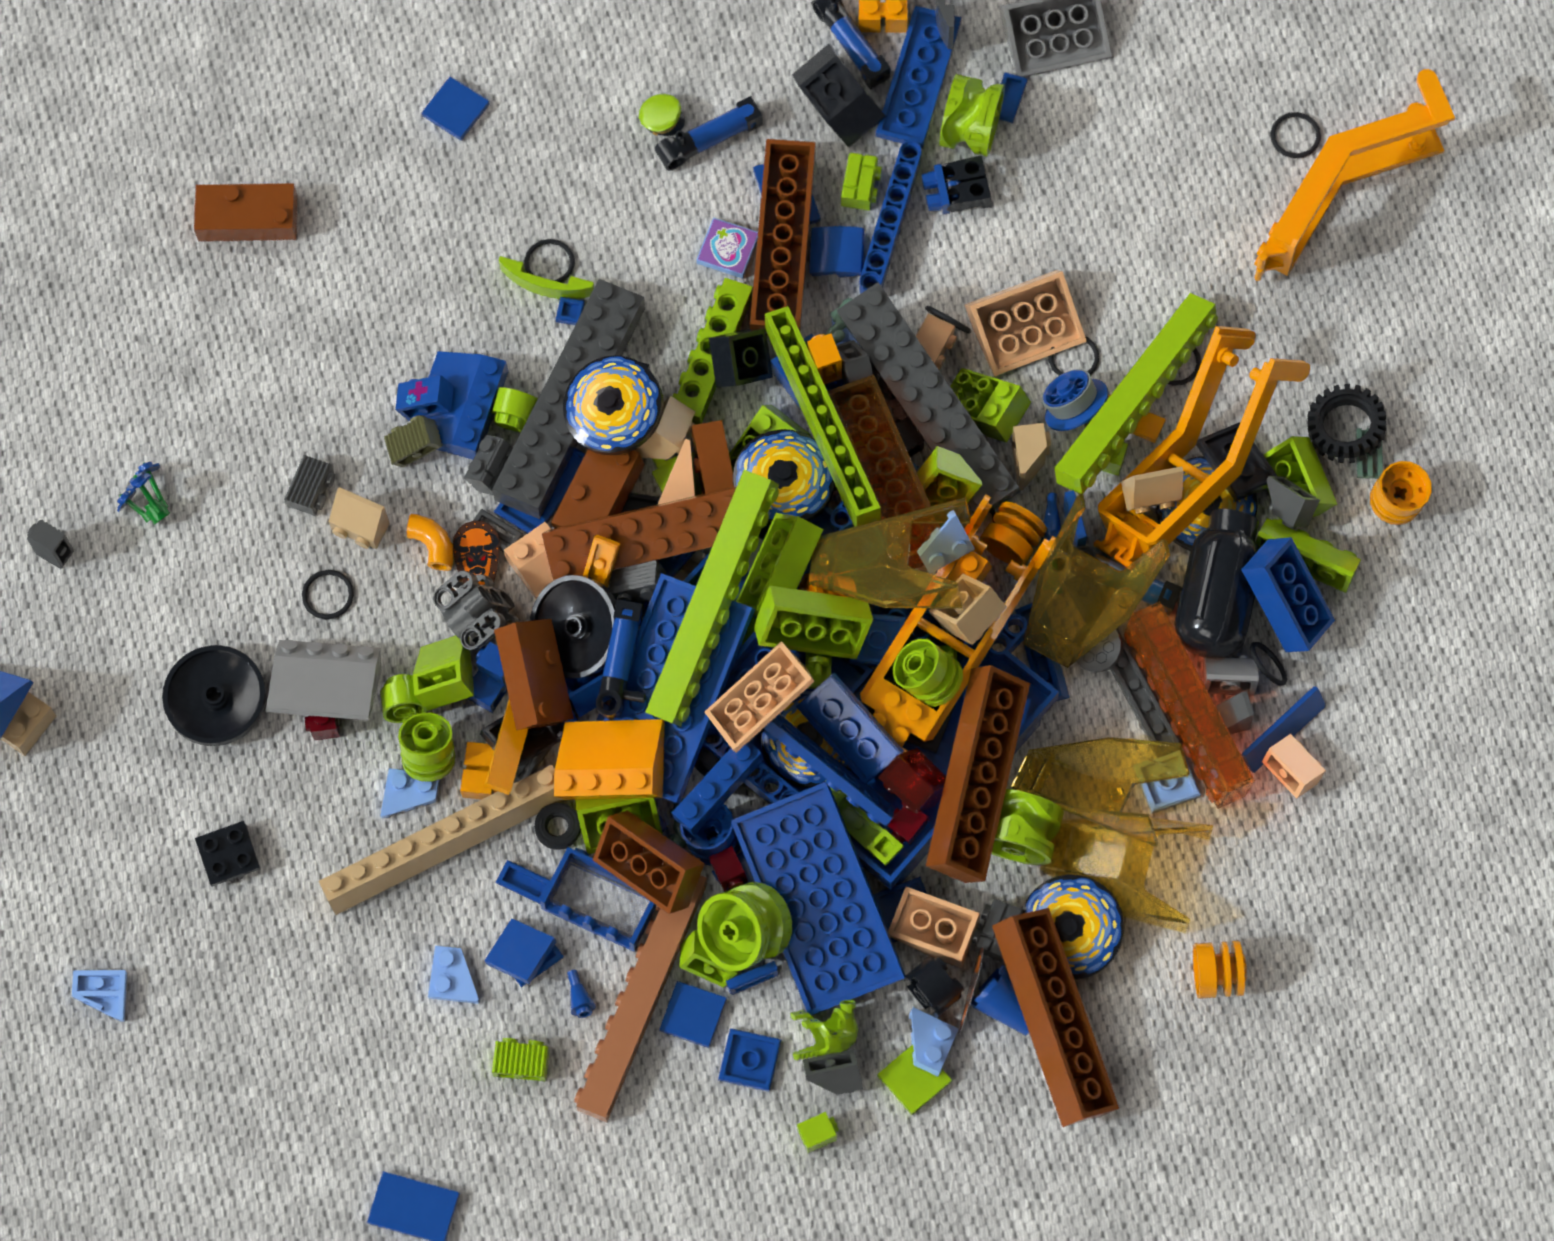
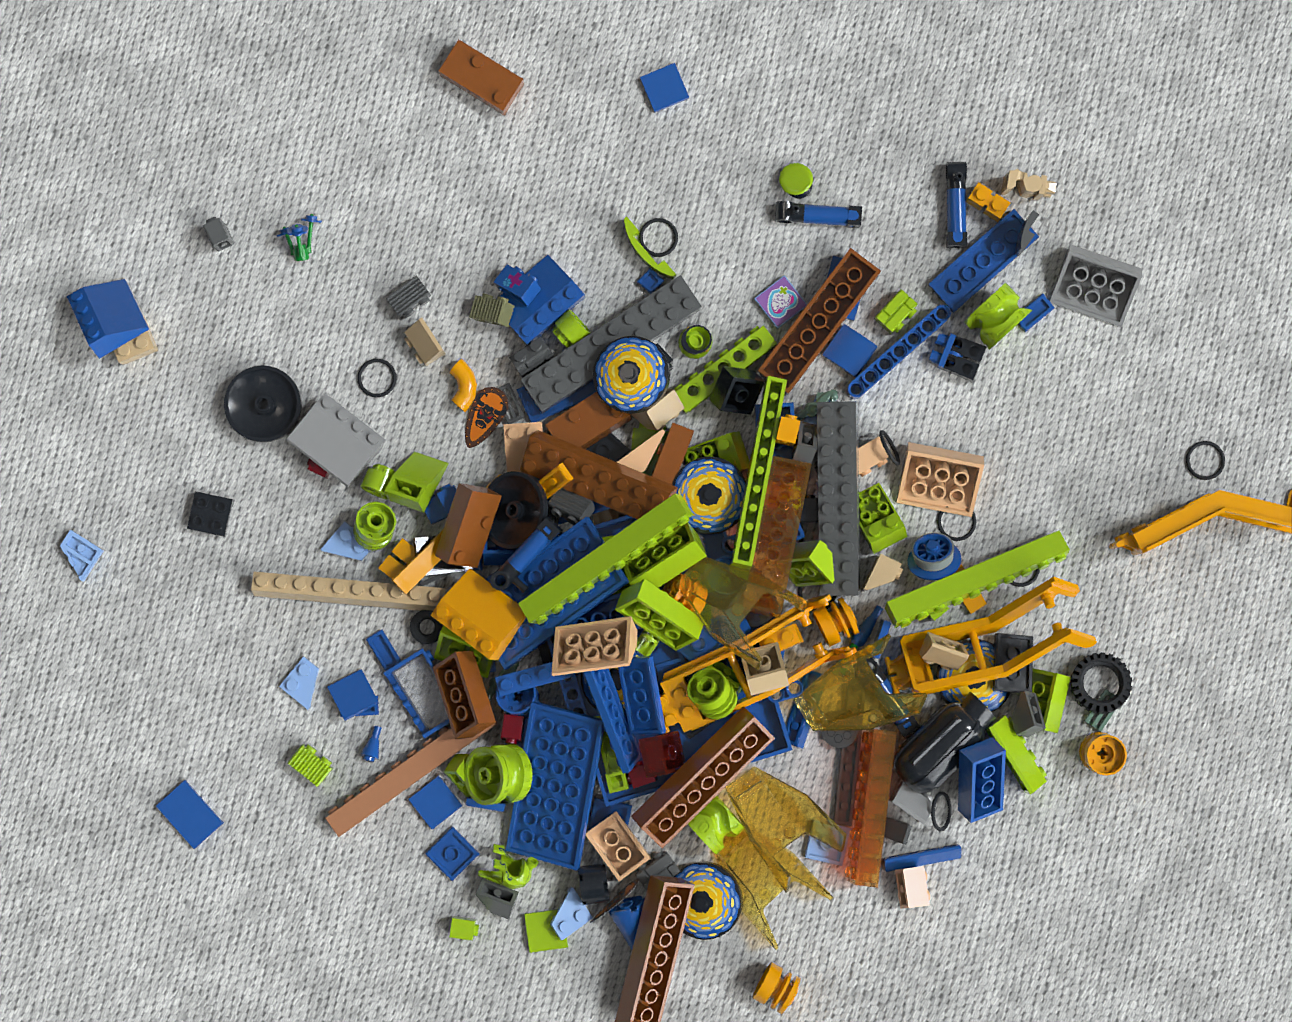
camera: 30 degrees right, 15 degrees up
(474, 608) = (461, 456): dark grey piece -> none
(661, 342) = (695, 341): none -> lime piece
(838, 96) = (919, 241): black slope -> none
(945, 544) = (778, 616): light blue wing -> none

